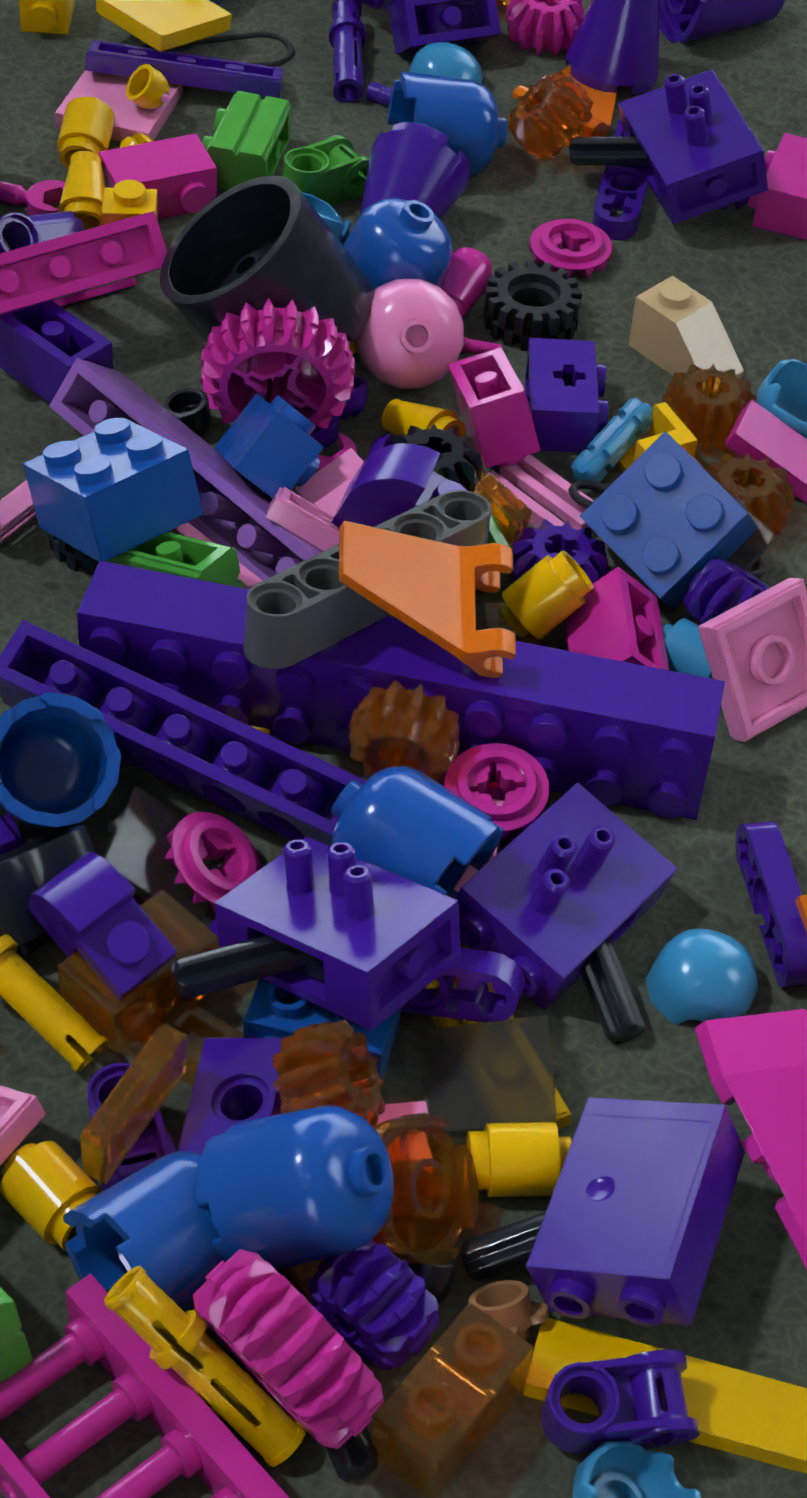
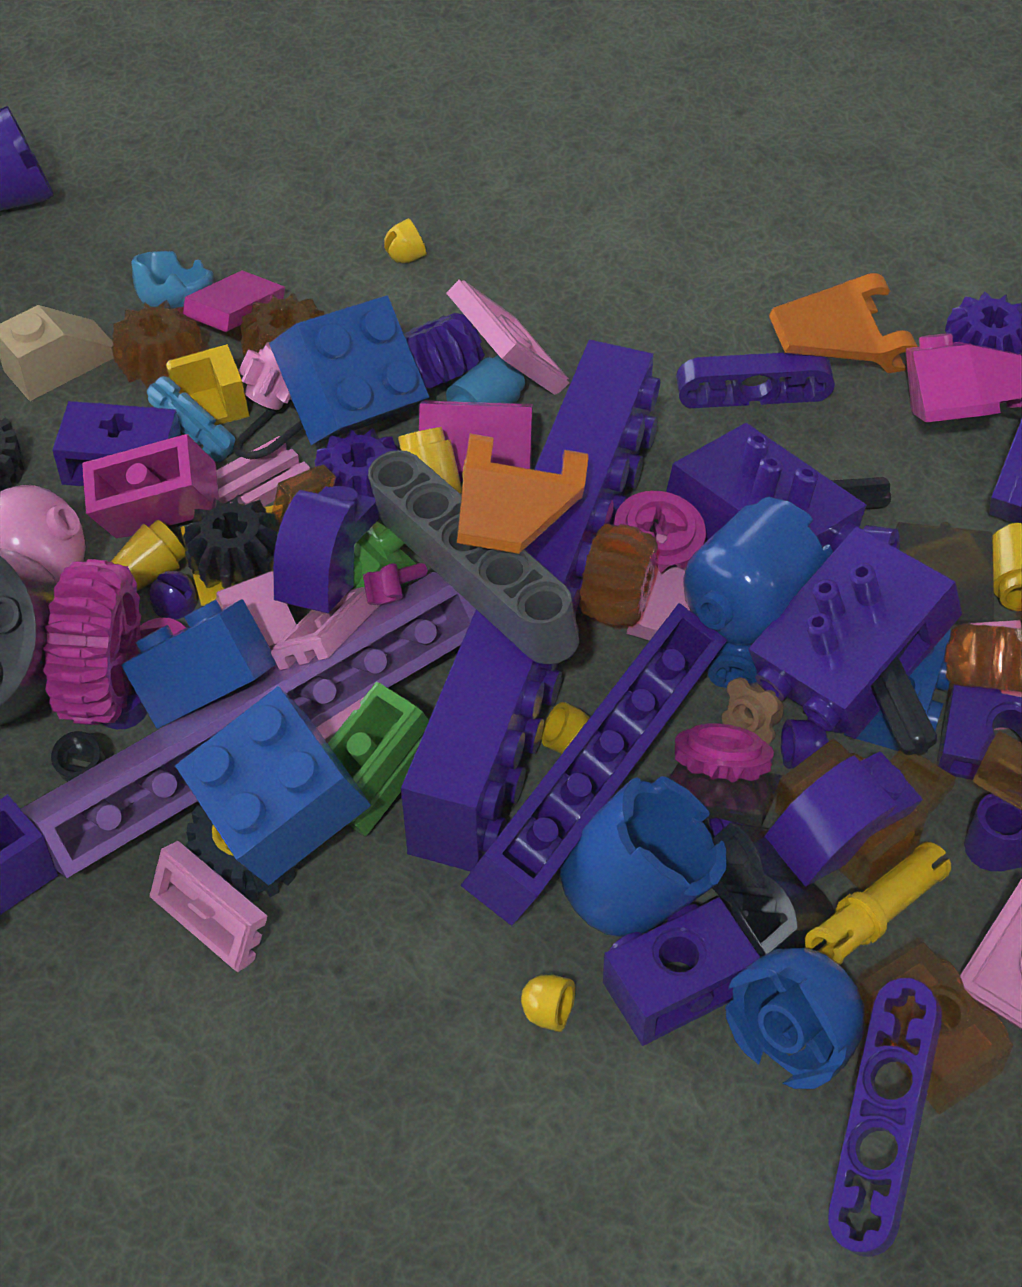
camera: 80 degrees left, 5 degrees up
(702, 977) = (829, 437): dark azure hair -> none

